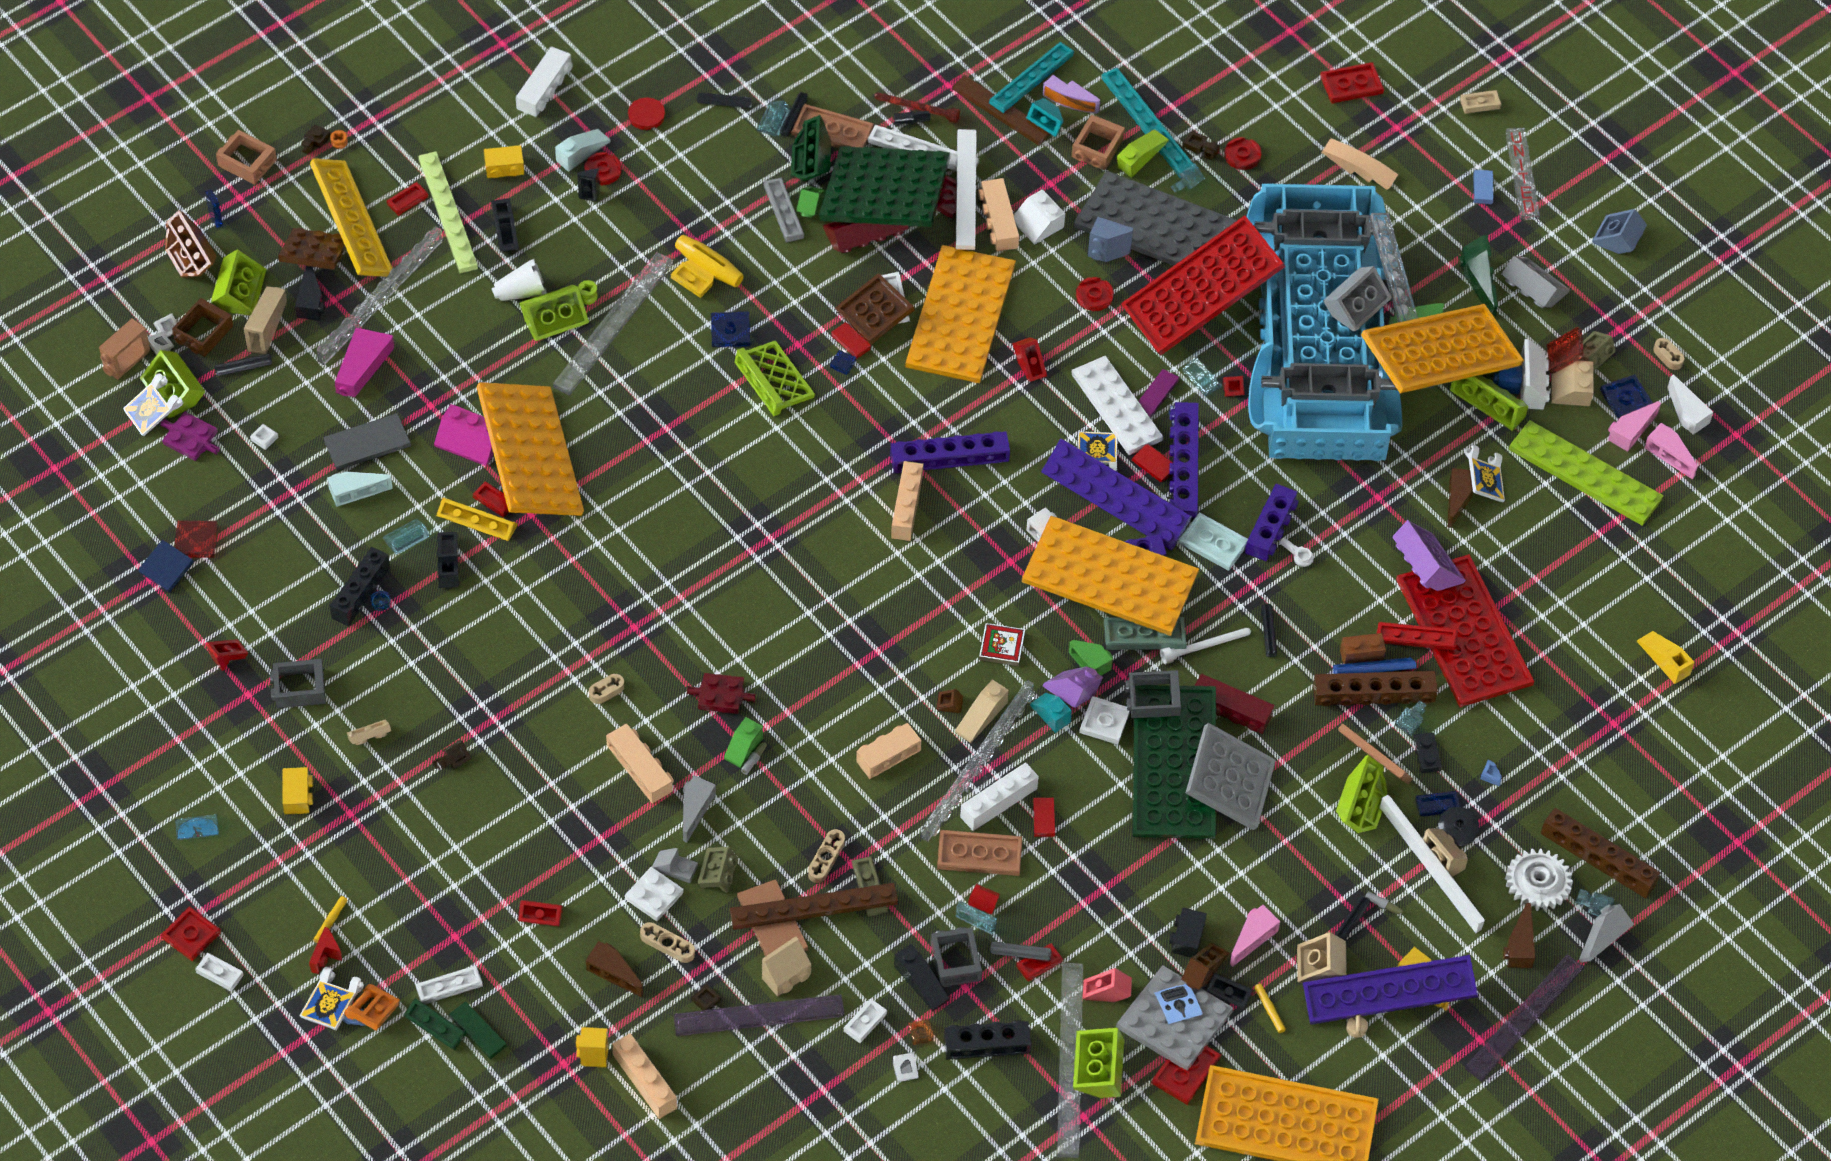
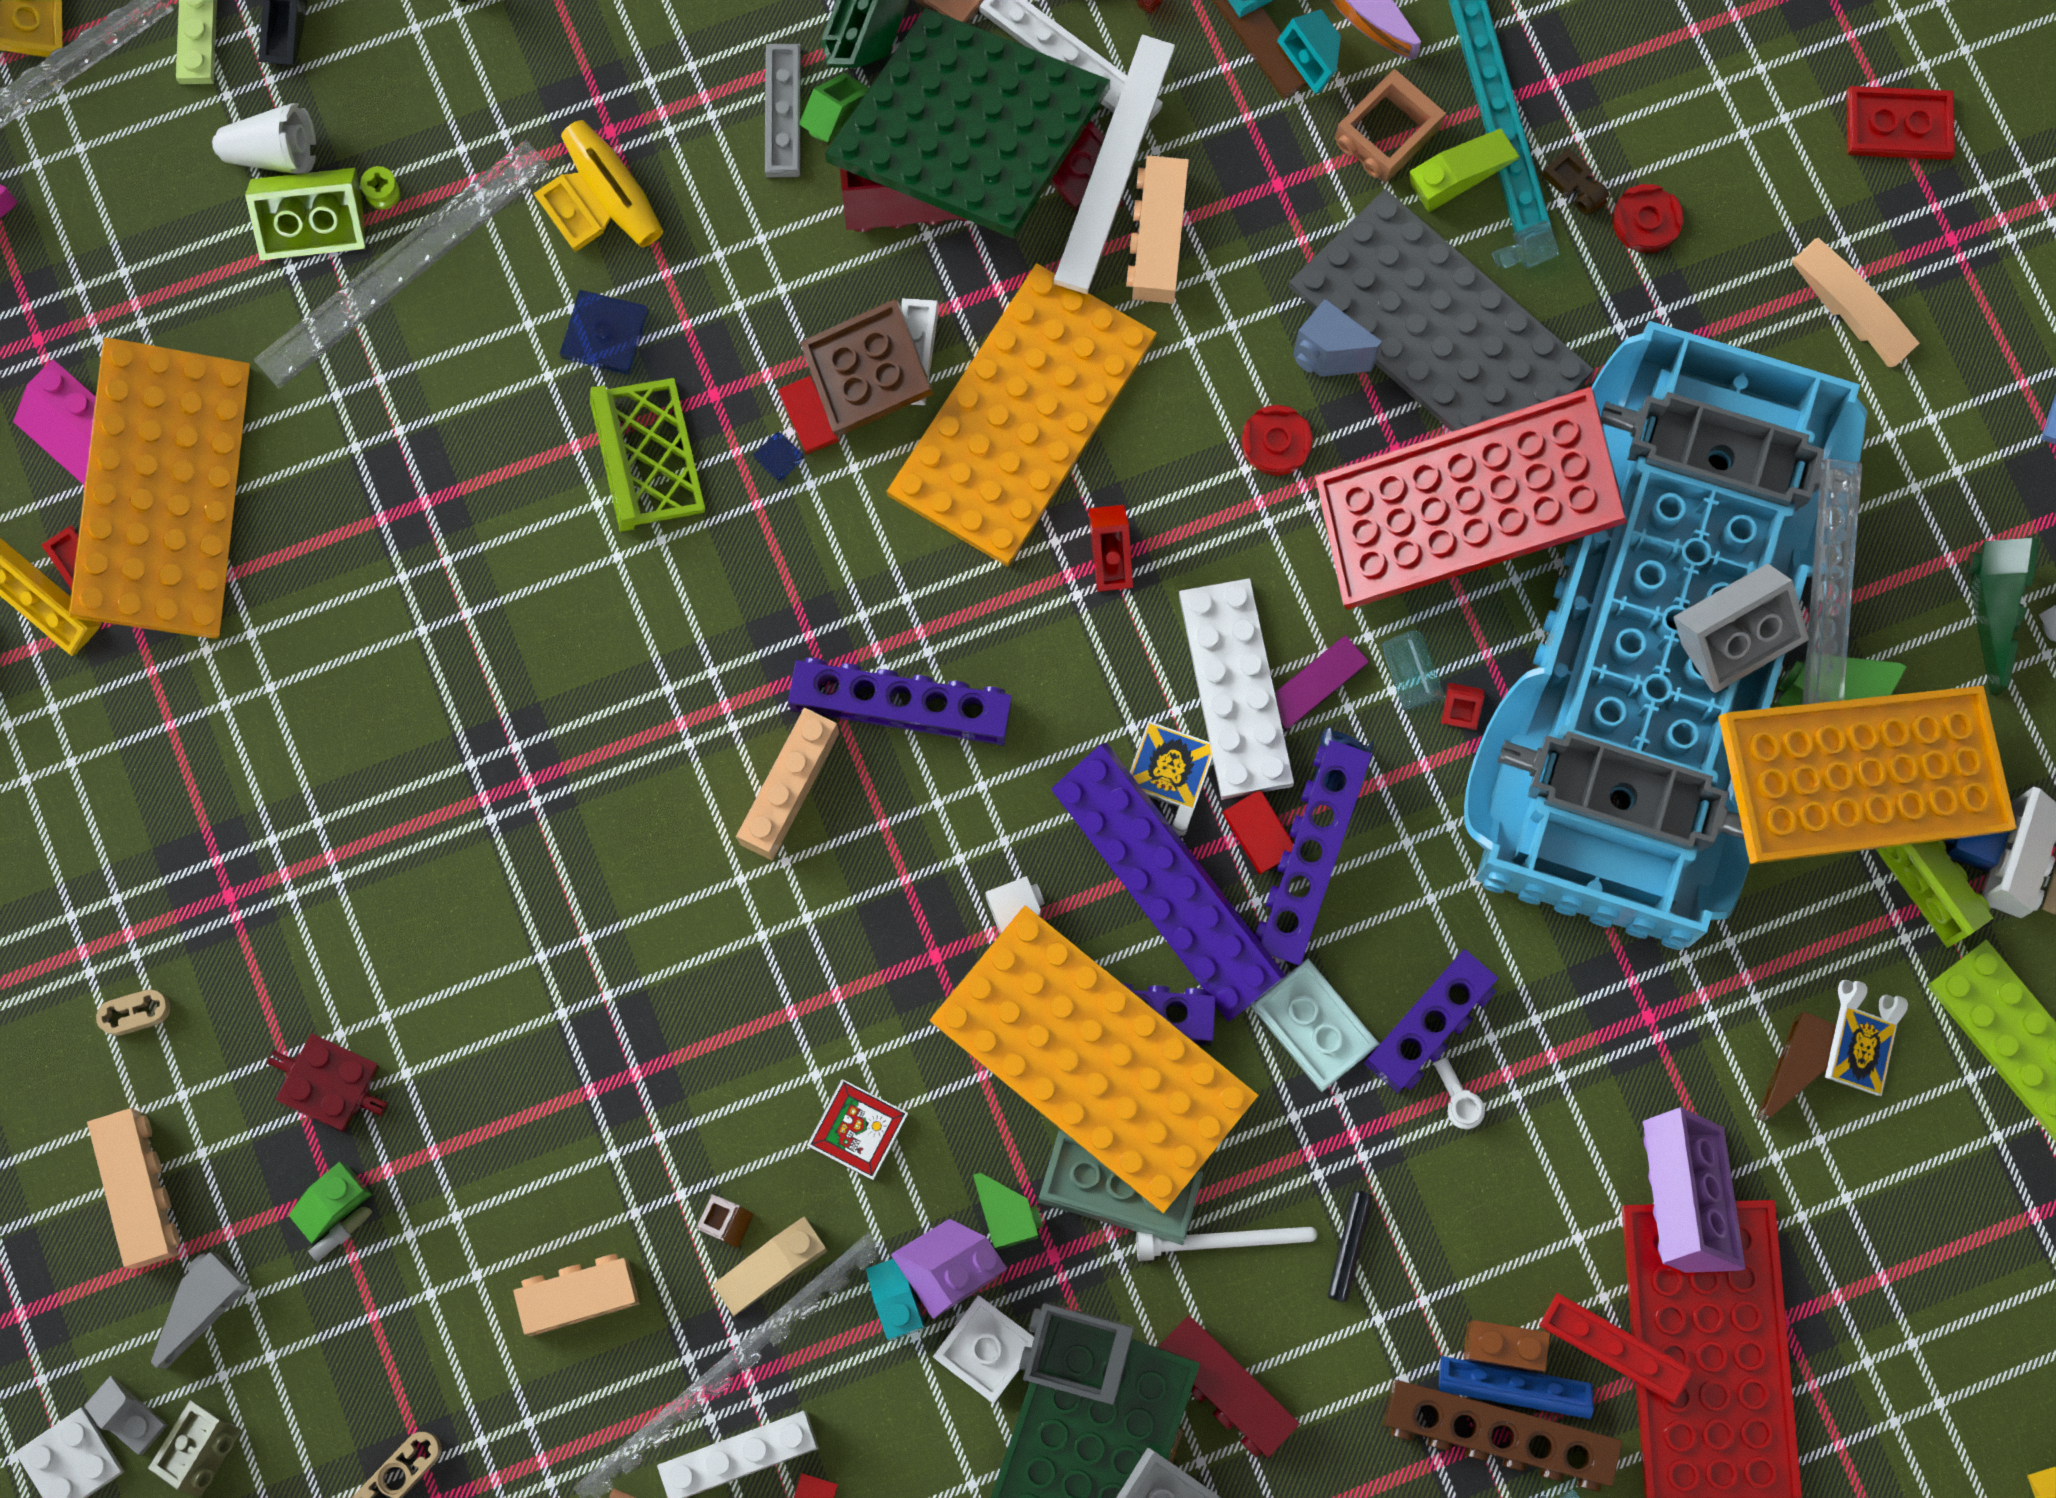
camera: 20 degrees right, 20 degrees up
(1039, 217) = (1228, 255): white slope -> none

